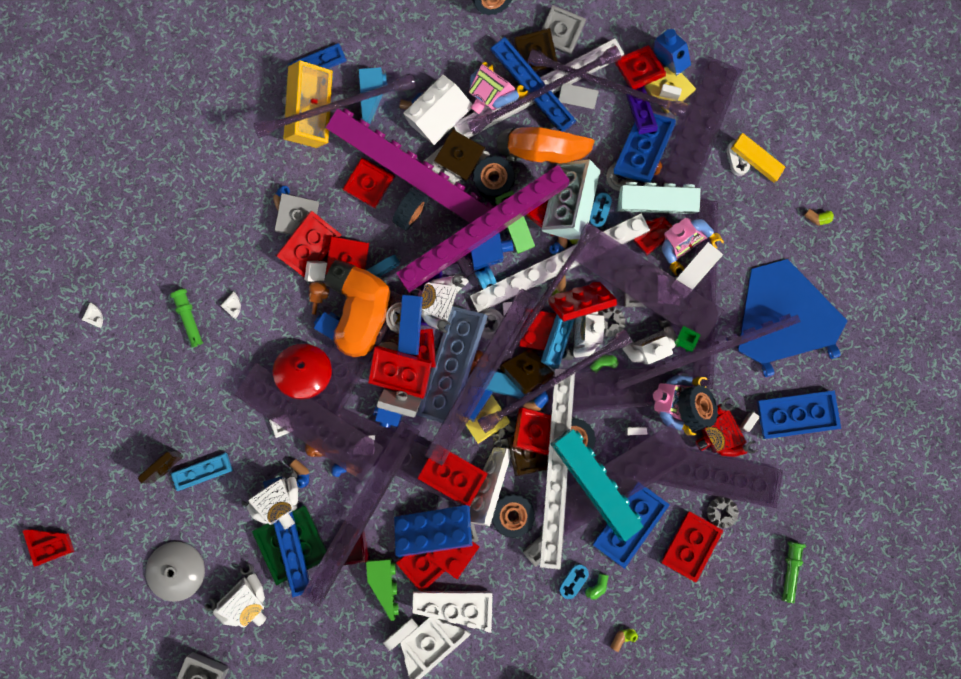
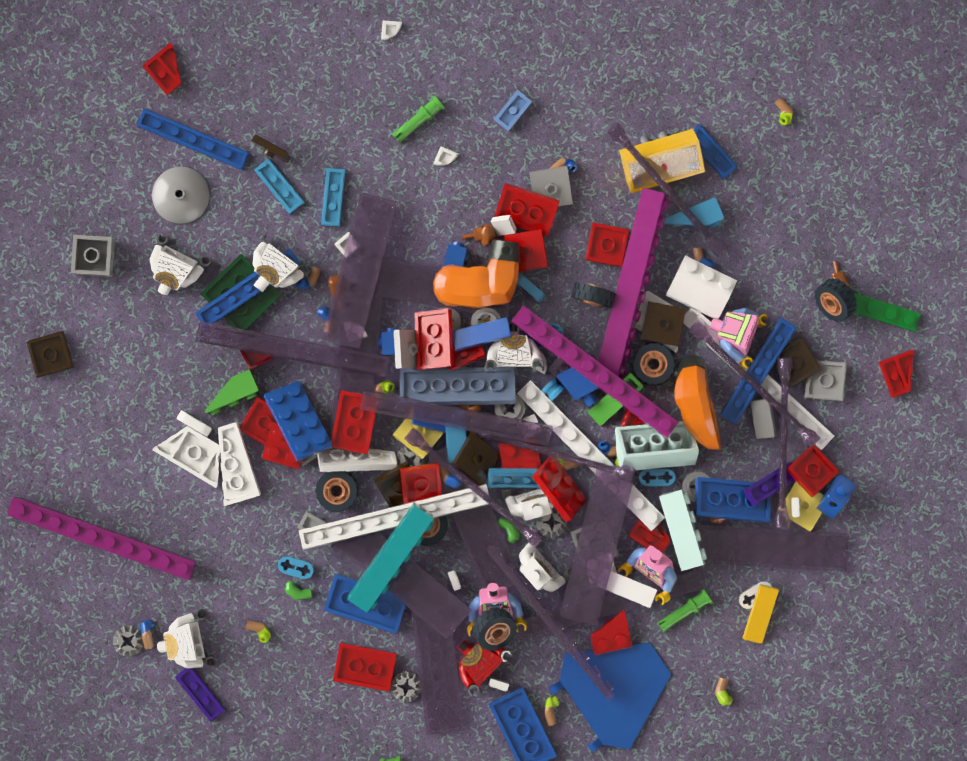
camera: 70 degrees right, 5 degrees up
(125, 541) = (192, 139): none -> blue tile
(212, 227) = (512, 110): none -> medium blue plate
(231, 423) = (333, 197): none -> dark azure tile
(305, 381) = (392, 250): red dish -> none
(428, 435) = (385, 387): none -> lime arm
(687, 339) = (556, 599): green tile -> none
(731, 217) = (693, 606): none -> bright green pin
(736, 300) = (612, 636): none -> red wing
(788, 383) = (549, 711): none -> arm

